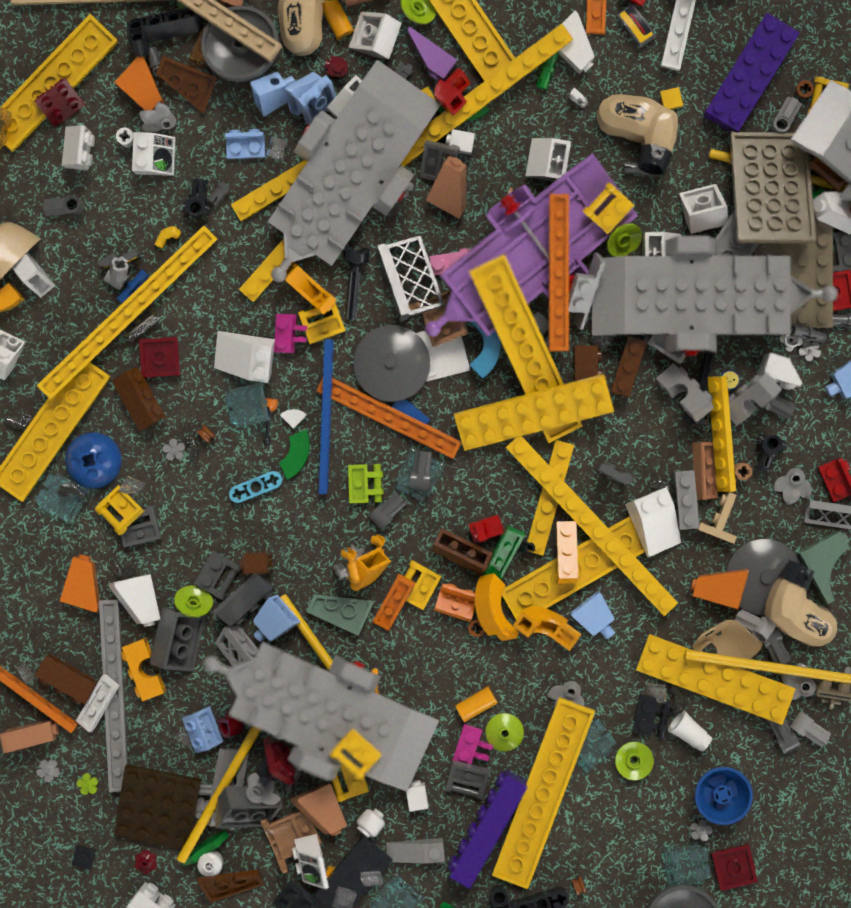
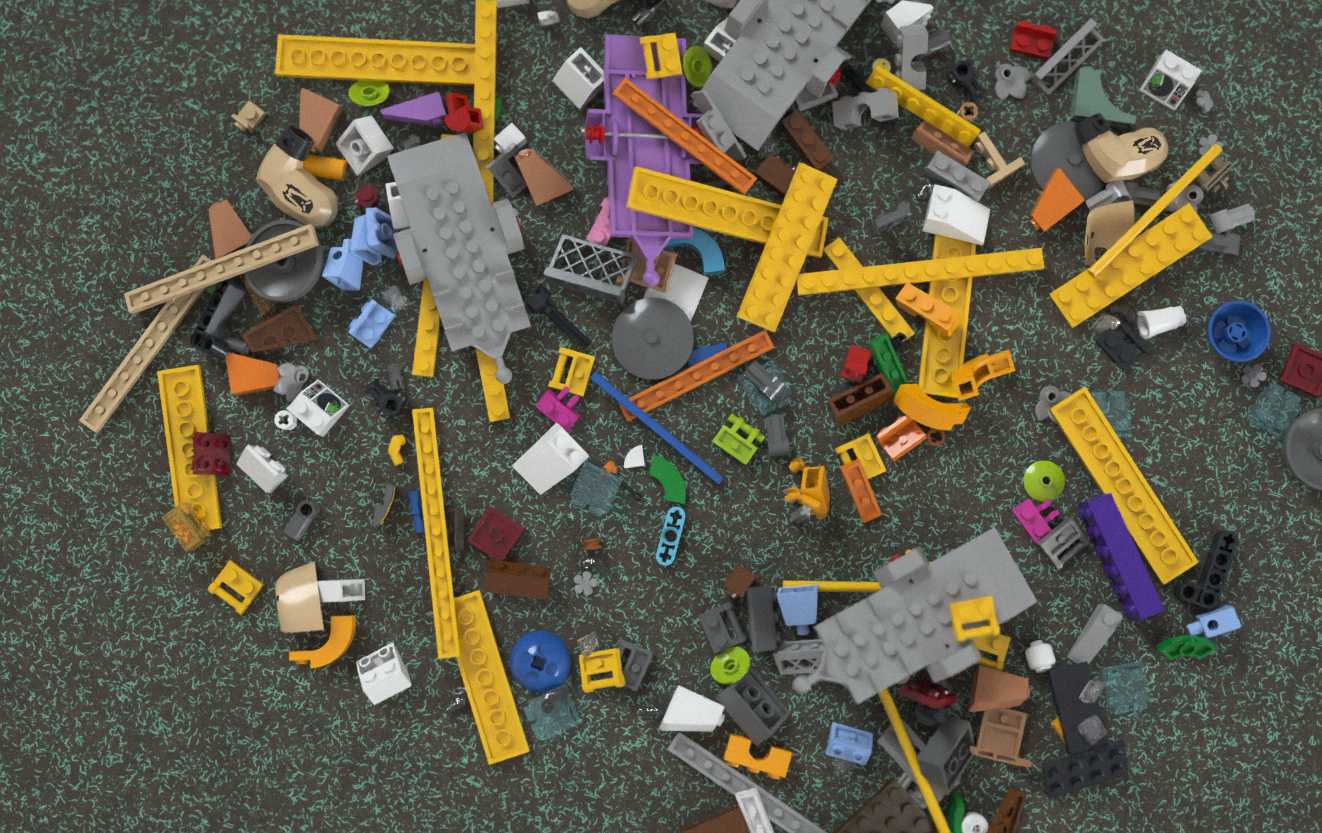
camera: 50 degrees left, 5 degrees down
(82, 584) = (641, 753): orange slope -> none
(117, 273) = (396, 514): light grey piece -> none
(230, 726) = (863, 715): dark red plate -> none
(257, 793) = (943, 733): light grey plate -> none
(309, 288) = (537, 360): light orange arch -> none
(310, 861) = (1037, 734): white slope -> none
(342, 612) = (835, 543): sand green wing -> none
(417, 796) = (1047, 598): white brick -> none
(476, 704) = (1001, 486): light orange brick -> none
(547, 70) = (505, 26): green pin -> none
(579, 886) = (1227, 516): dark orange bush -> none
(595, 615) = (1000, 327): light blue torso -> none
(641, 767) = (1160, 384): lime dish -> none

